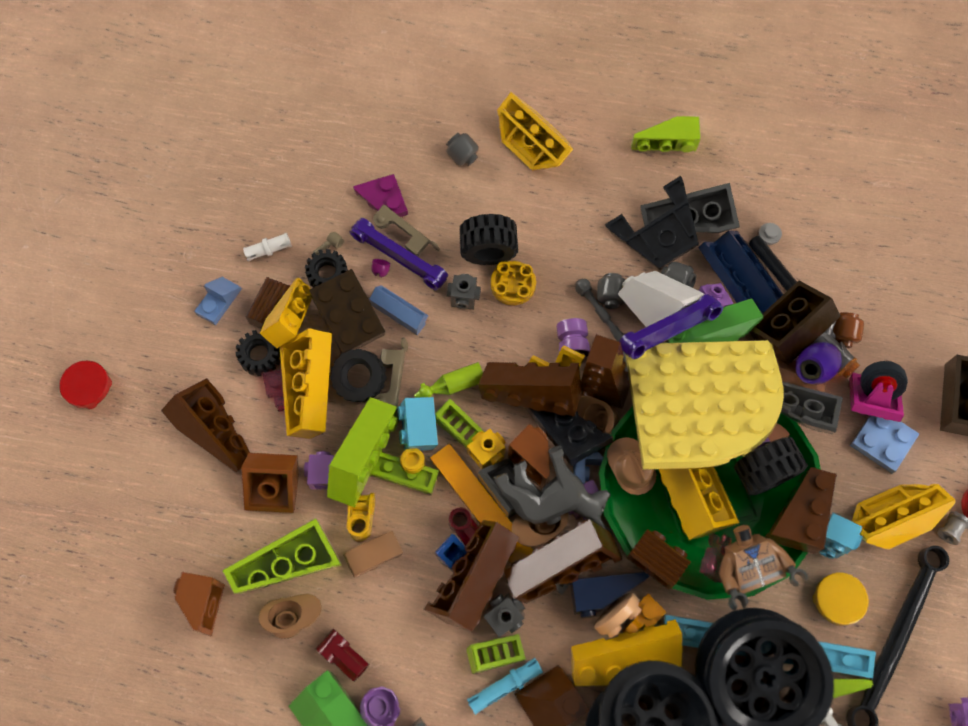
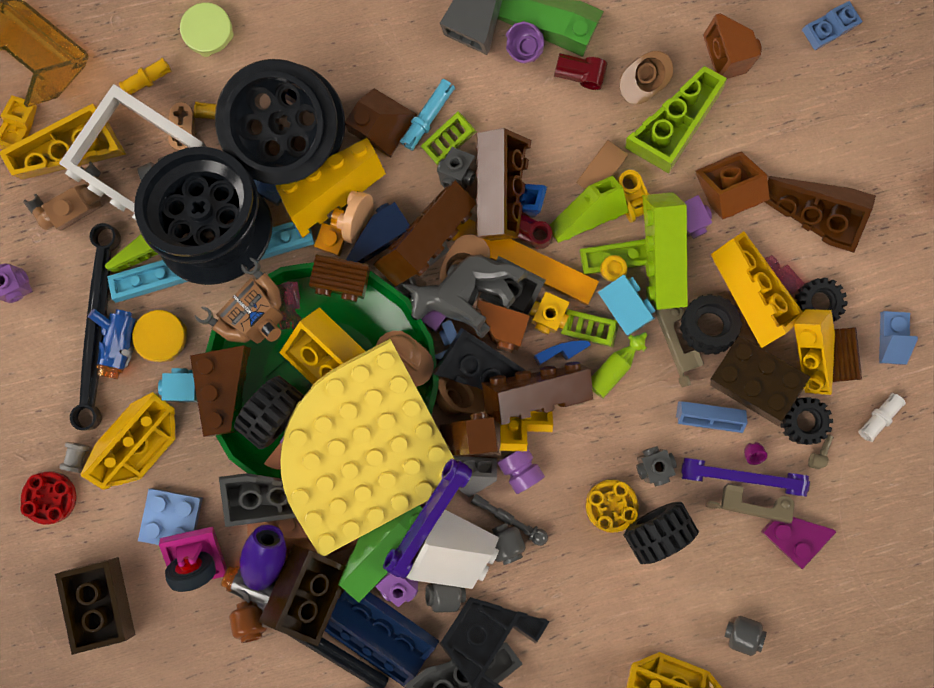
camera: 150 degrees right, 15 degrees up
(95, 582) = (832, 25): none -> medium blue slope
(406, 520) = (593, 207): none -> lime slope
(484, 414) = (567, 349): none -> blue slope
(883, 610) = (117, 342): none -> blue piece

